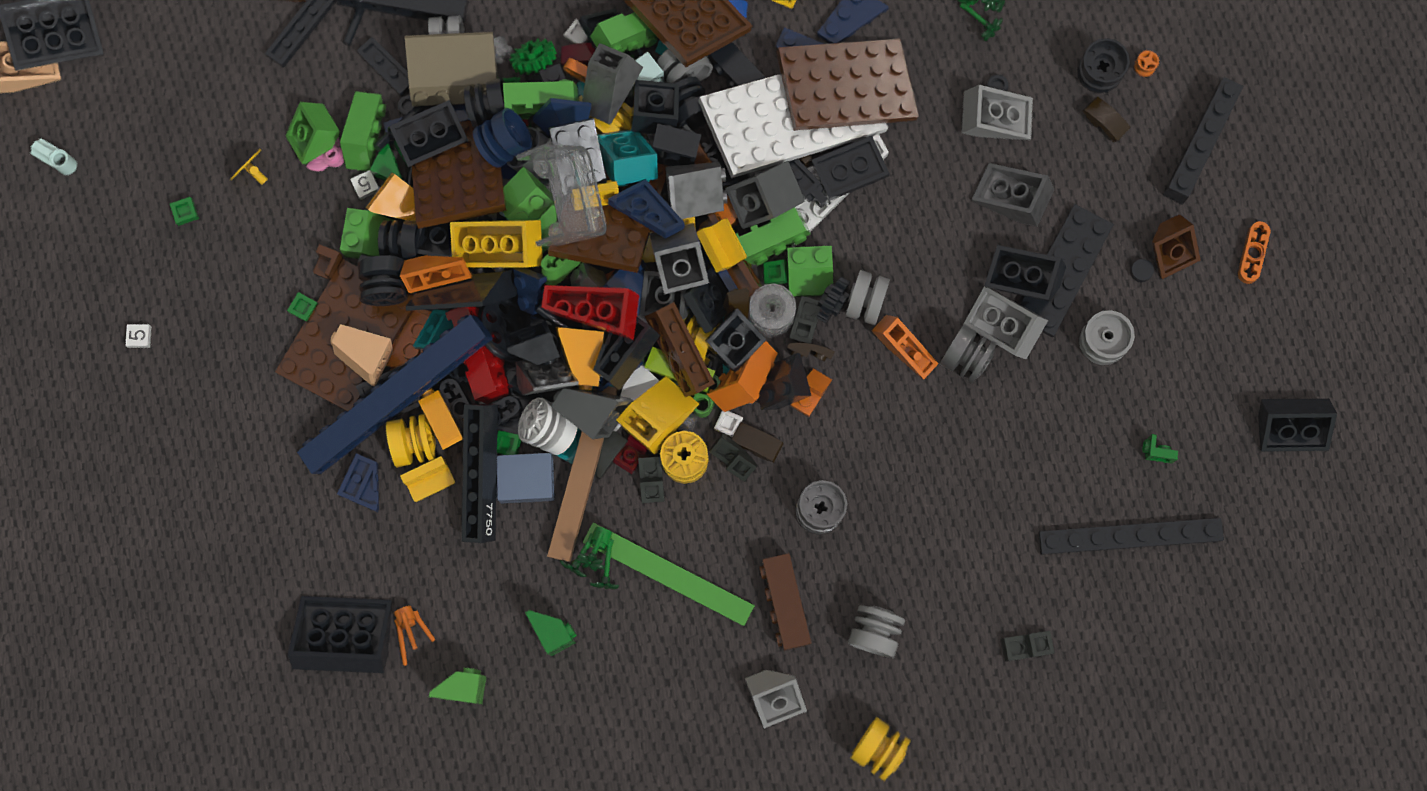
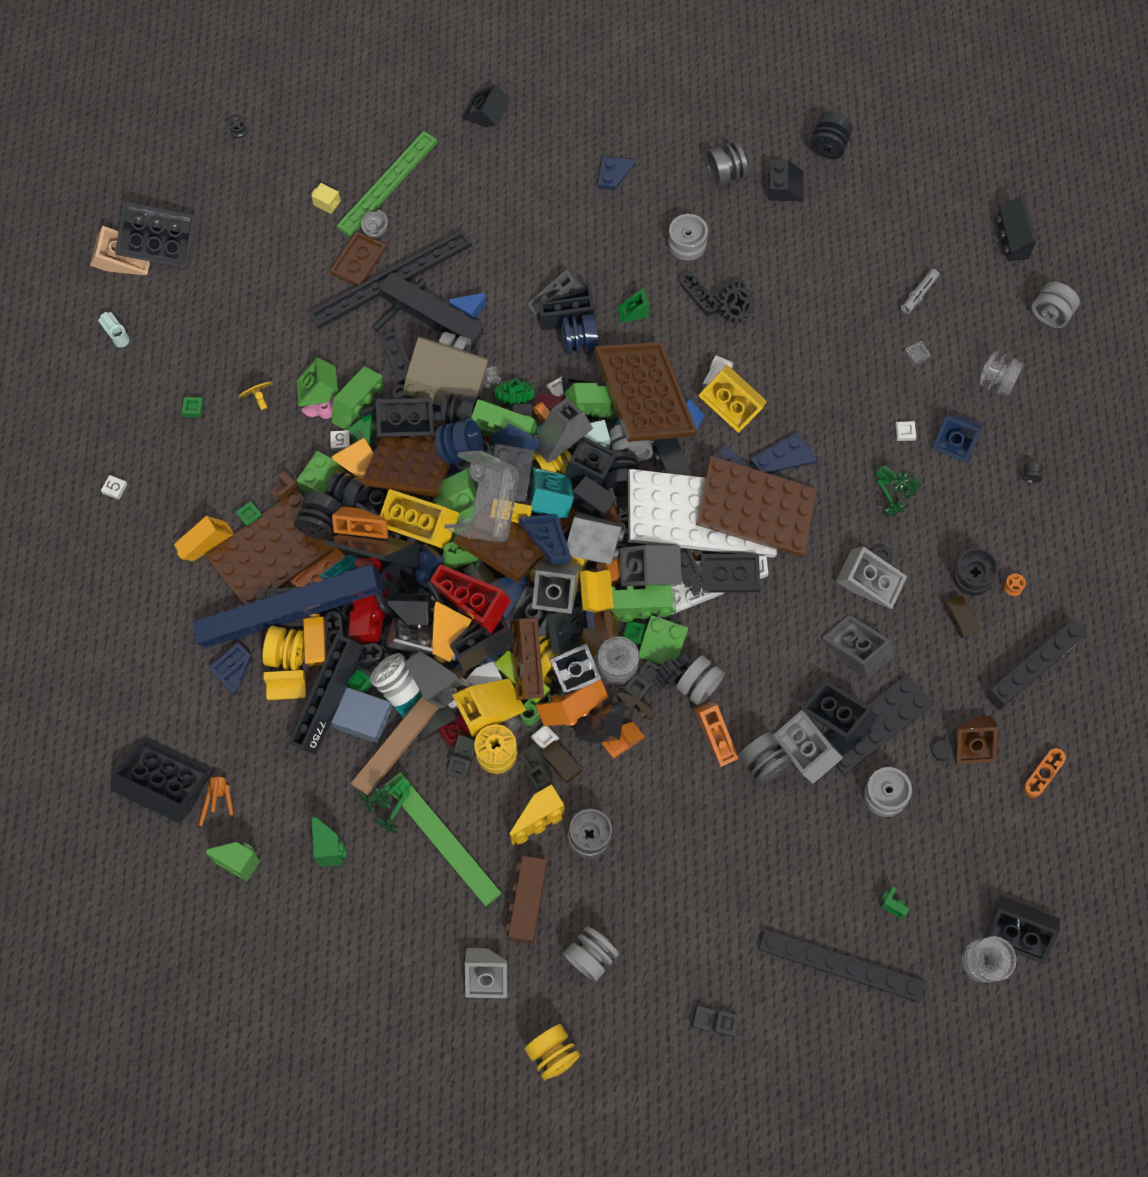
camera: 20 degrees right, 10 degrees down
(265, 354) = (203, 538): none -> light orange slope
(362, 352) = (278, 564): light nougat slope -> none
(762, 500) = (541, 810): none -> yellow slope
(1277, 470) = (1000, 959): none -> clear wheel

